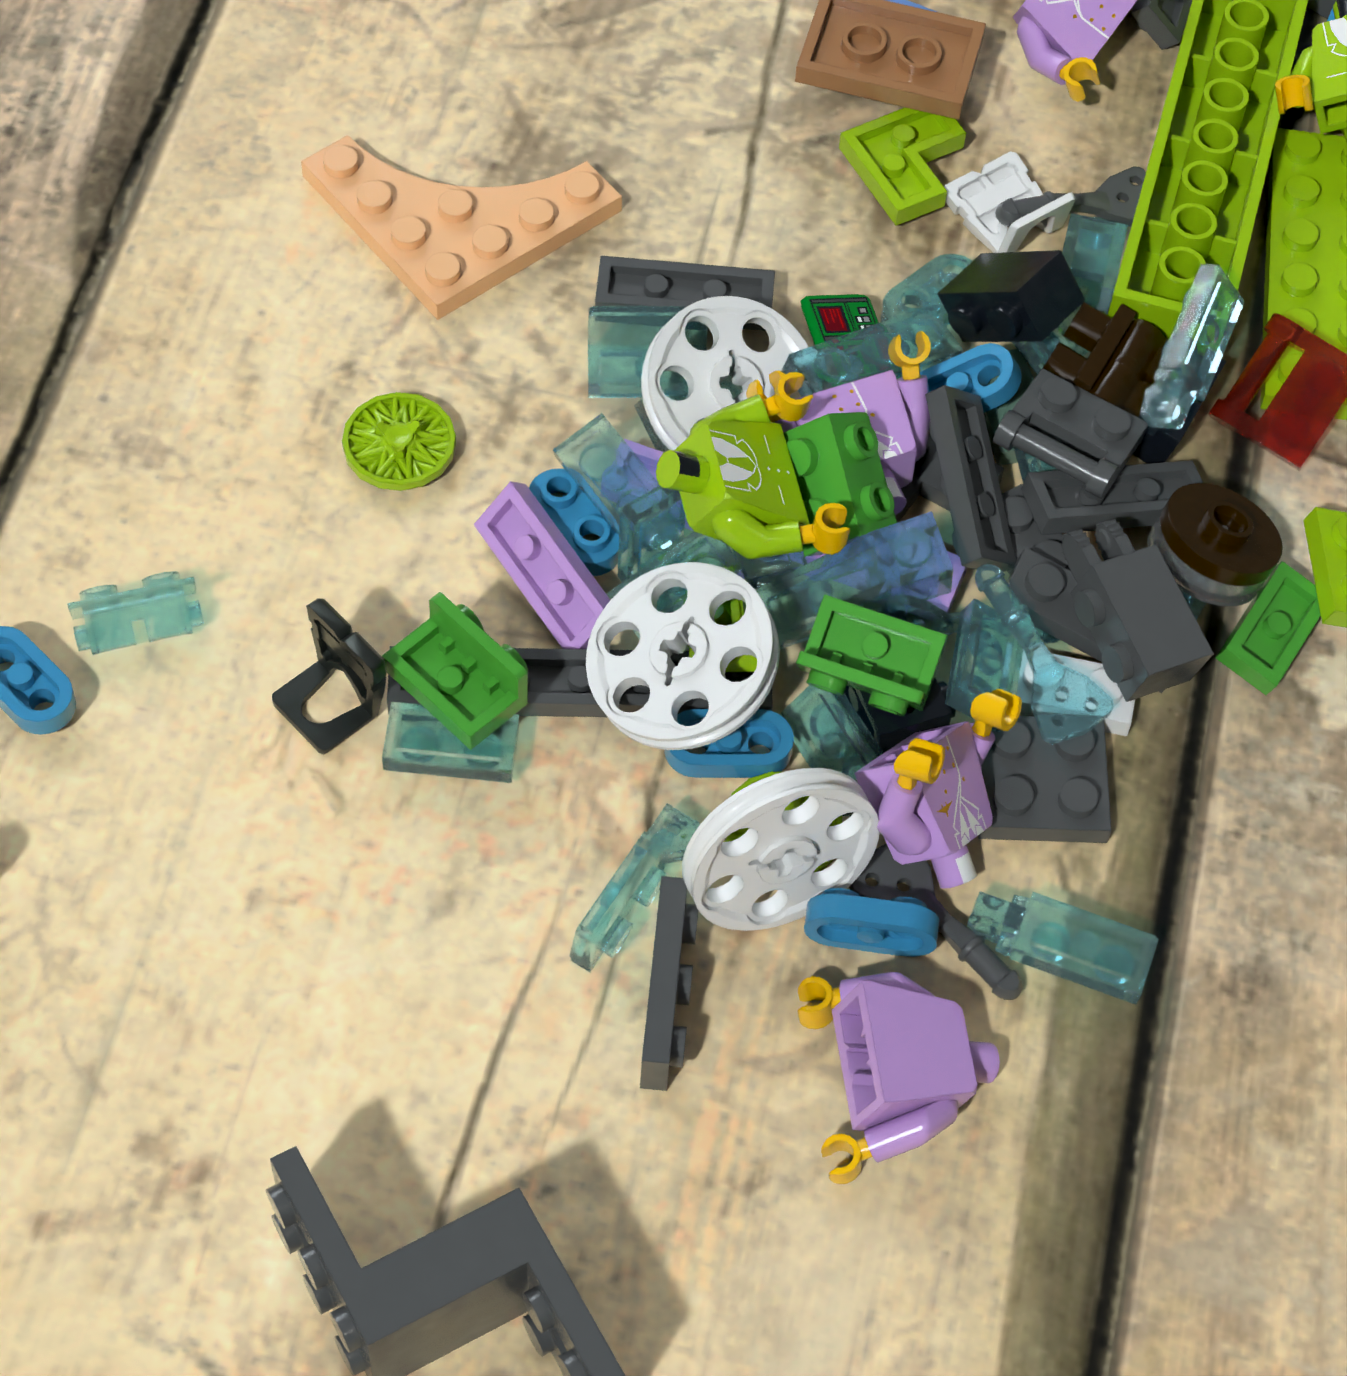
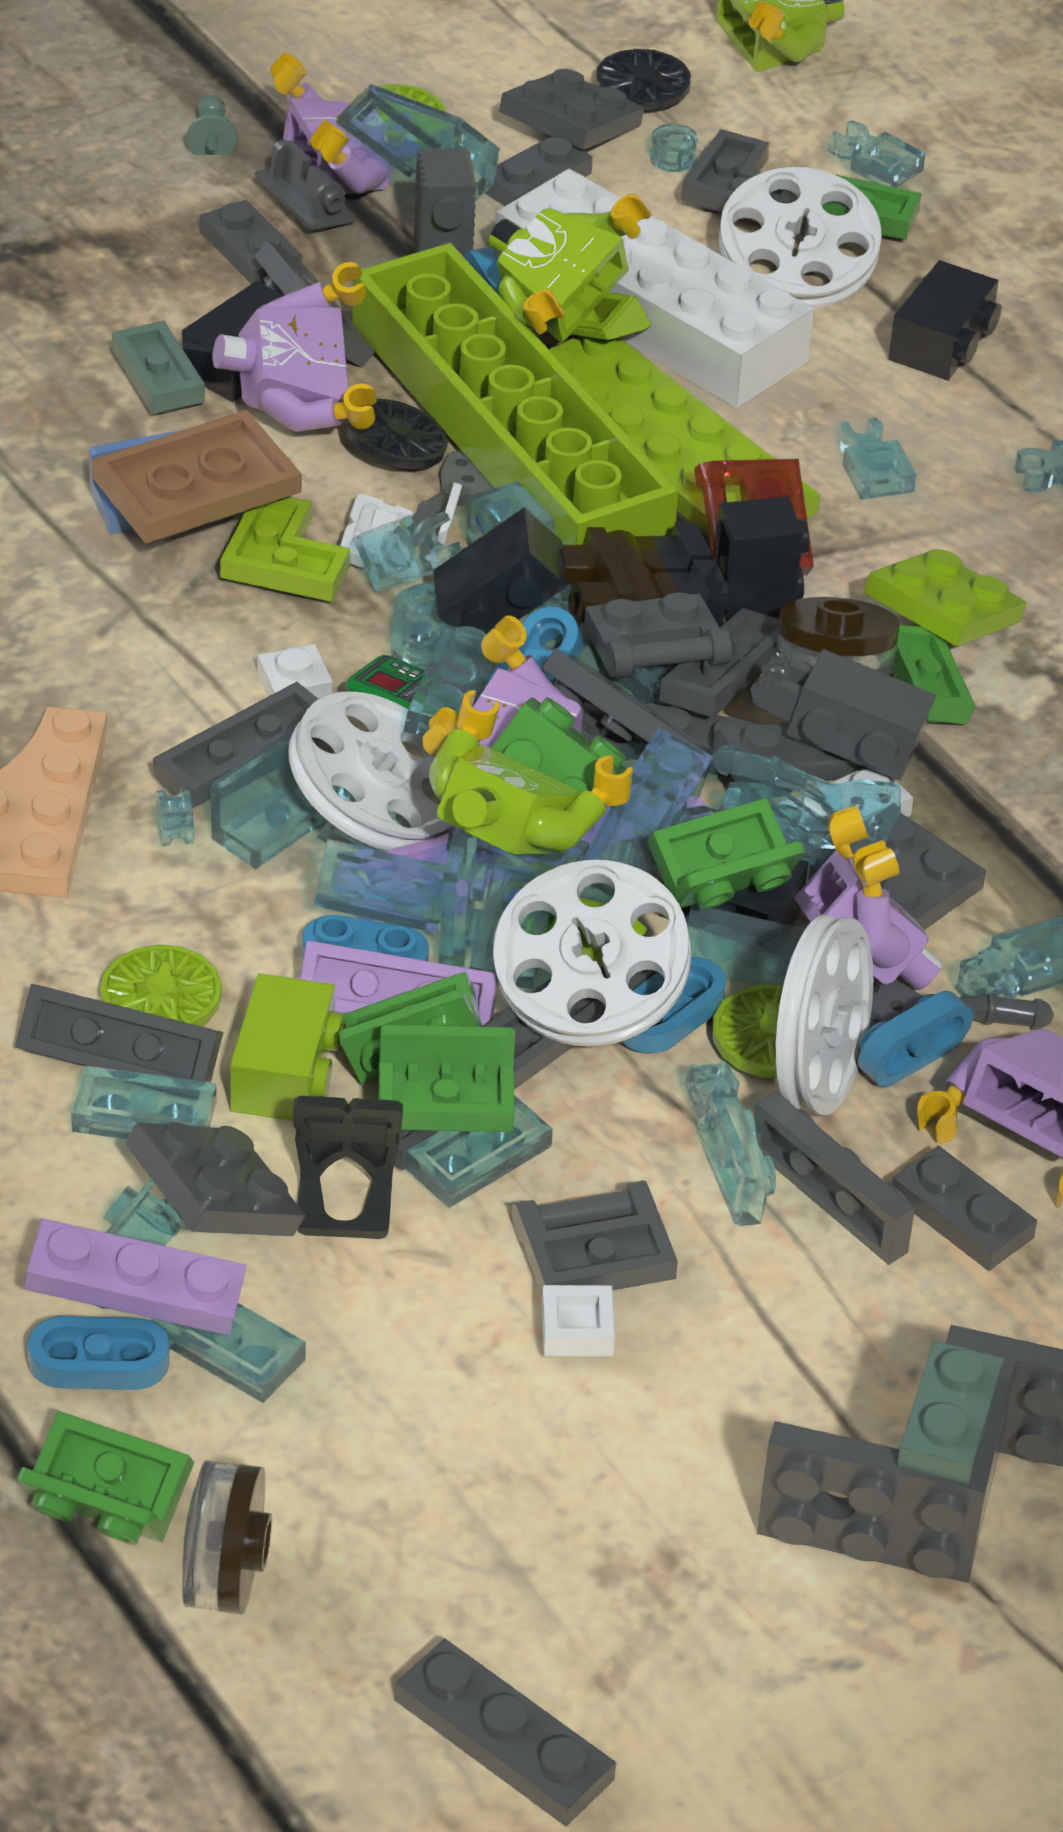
camera: 45 degrees left, 15 degrees down
(81, 645) = (135, 1276): none -> lavender plate
(110, 743) = (252, 1358): none -> clear light blue plate
(235, 615) = (215, 1179): none -> dark grey plate
(273, 521) = (115, 1100): none -> clear light blue plate
(317, 456) = (115, 1036): none -> dark grey plate
(349, 935) = (578, 1321): none -> white plate
(414, 551) = (284, 1046): none -> lime brick
(415, 1259) = (950, 1412): none -> sand green plate
(432, 898) = (597, 1239): none -> dark grey plate
(515, 607) = (436, 1004): none -> bright green bracket
(564, 313) = (175, 817): none -> clear light blue bush
(744, 1093) = (965, 1208): none -> dark grey plate
(797, 265) = (292, 665): none -> white plate
(973, 221) = (402, 551): none -> clear light blue plate
(1109, 125) = (400, 436): none -> black wheel
(1193, 349) = (685, 521): clear light blue hinge -> none
(1234, 428) = (761, 554): none -> black brick

